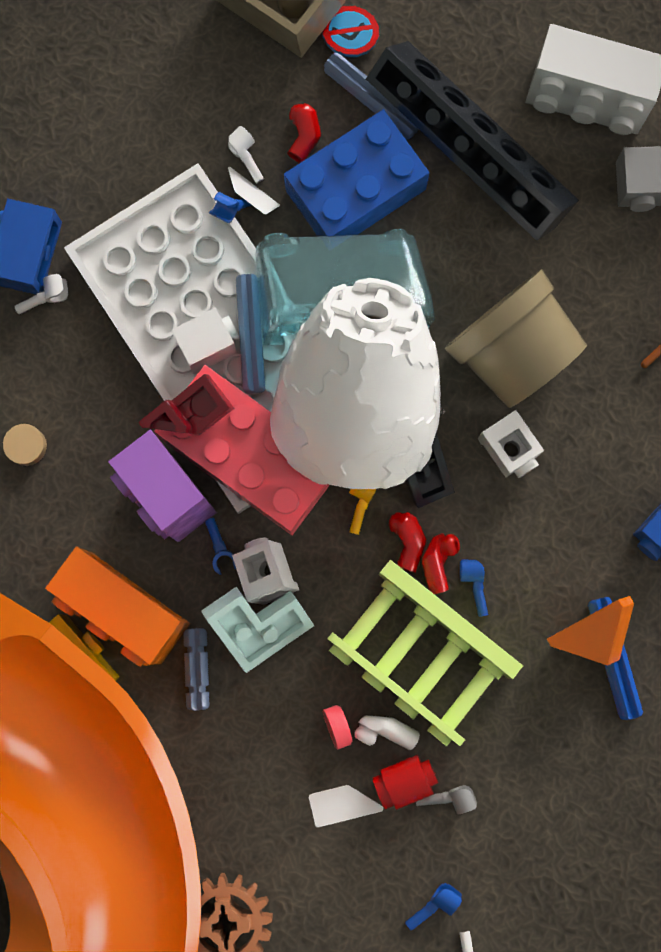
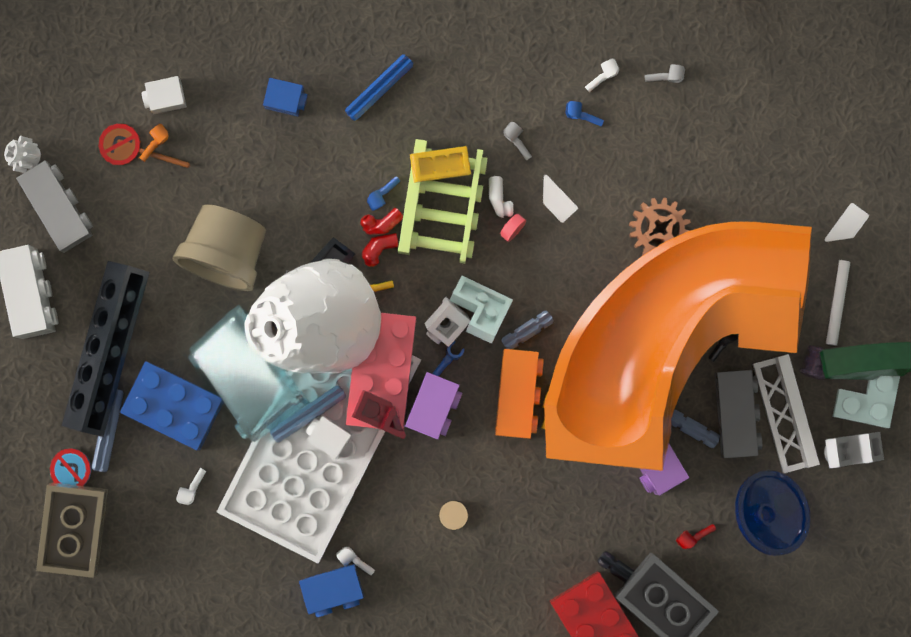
camera: 125 degrees left, 5 degrees up
(227, 207) = (236, 476): blue hand -> none
(251, 193) = (215, 469): white sticker -> none
(309, 131) = (153, 457): red arm -> none
(405, 782) = (522, 170): red brick -> none
(472, 679) = (440, 164): none -> yellow plate
(515, 431) = (278, 226): white brick -> none
(597, 635) = (373, 104): orange slope -> none

